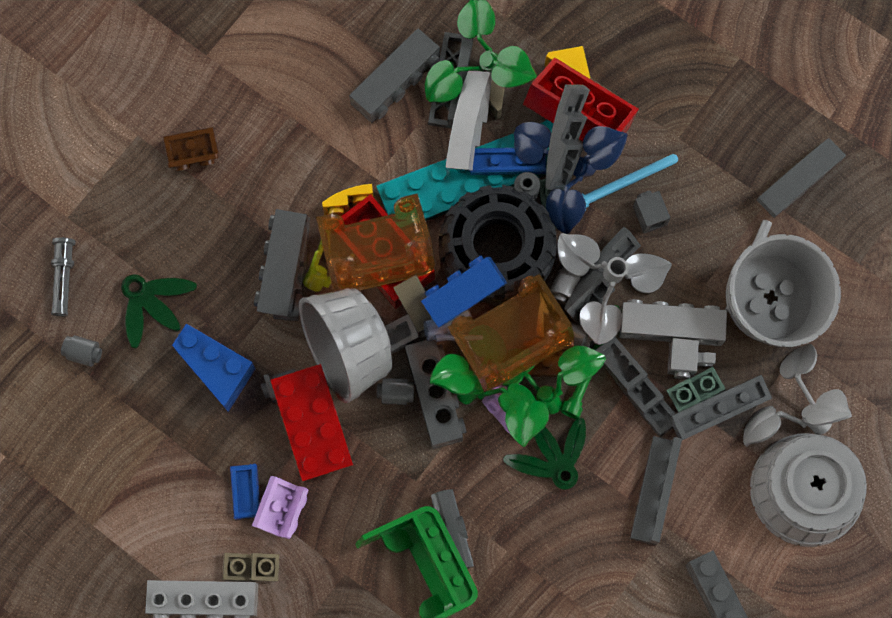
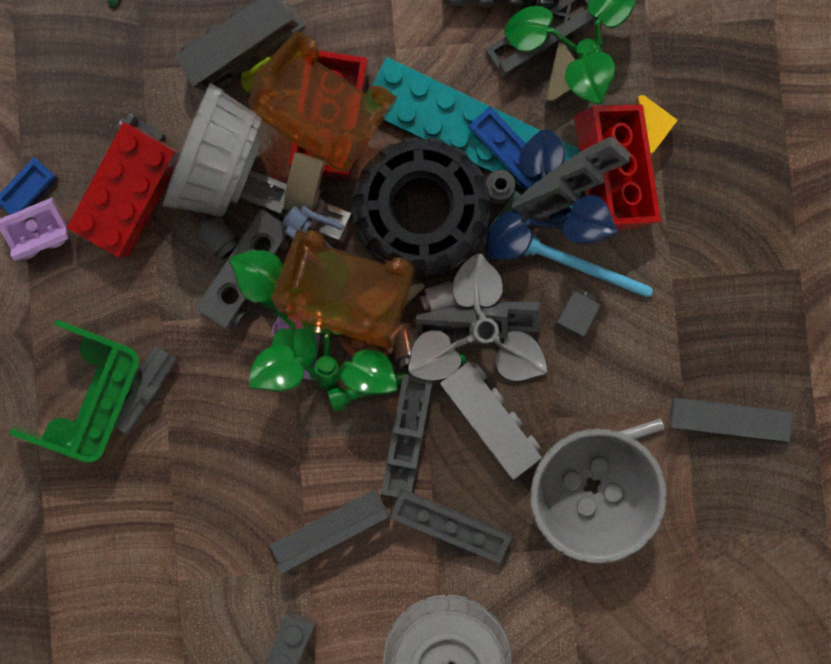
camera: 50 degrees right, 10 degrees up
(216, 365) = (103, 65): blue wedge -> none
(340, 201) = (344, 40): yellow slope -> none
(463, 290) = (342, 215): blue brick -> none
(468, 119) = (519, 78): light grey slope -> none
(556, 460) = (279, 426): dark green plant -> none
(685, 357) = (469, 457): light grey brick -> none
(696, 389) = (450, 491): sand green slope -> none
(818, 416) = (514, 620): light grey plant -> none

